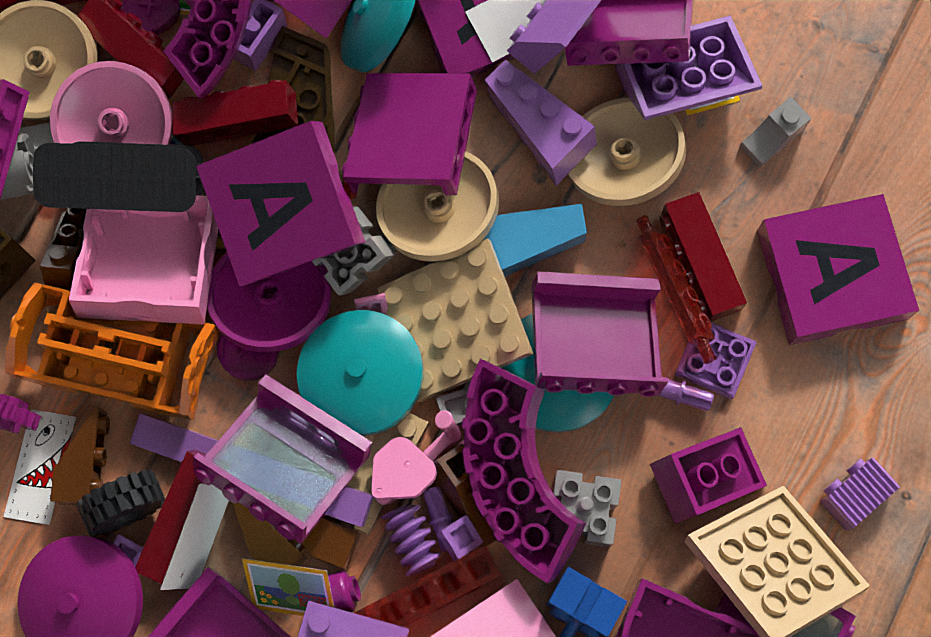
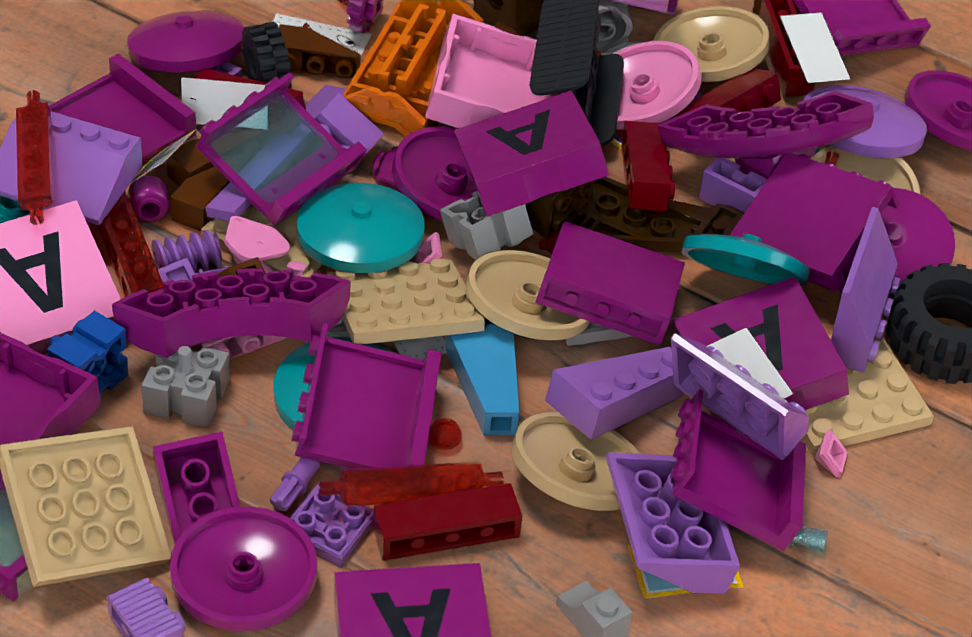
camera: 90 degrees right, 30 degrees down
(217, 406) = (348, 124): none -> medium lavender brick
(598, 266) = (444, 434): none -> clear red plate
(796, 418) = (243, 568): none -> magenta dish

